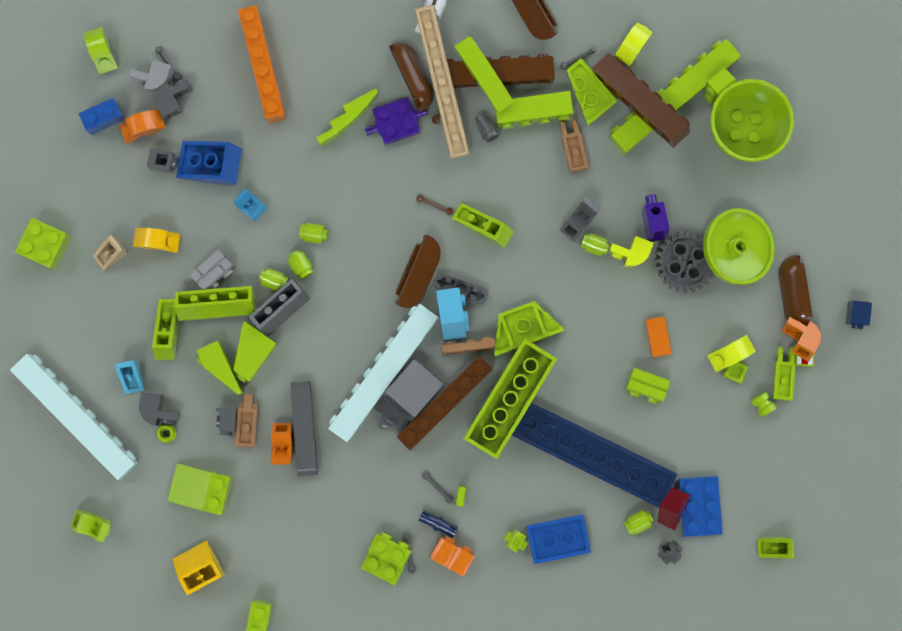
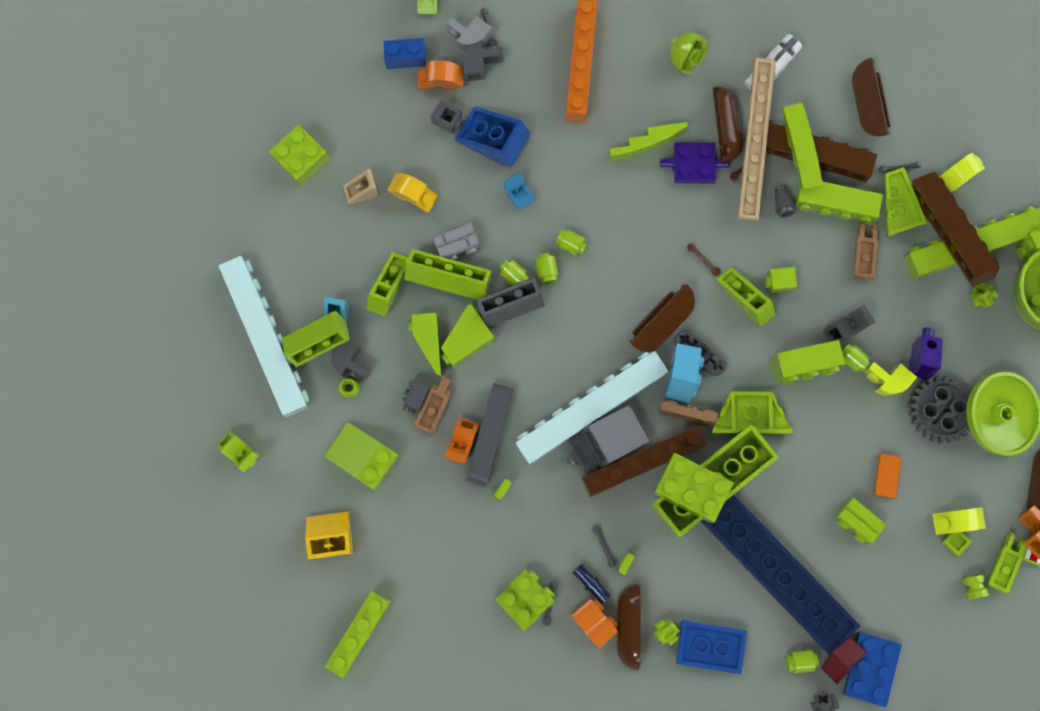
camera: 25 degrees right, 5 degrees down
(120, 403) = (315, 339): none -> lime brick
(333, 470) = (503, 489): none -> lime tile
(353, 22) = (687, 51): none -> lime cylinder
(482, 548) = (629, 626): none -> reddish brown brick
(492, 413) = (693, 488): none -> lime brick
(508, 199) = (781, 280): none -> lime brick
(555, 265) = (807, 362): none -> lime brick
(688, 148) = (983, 295): none -> lime gear

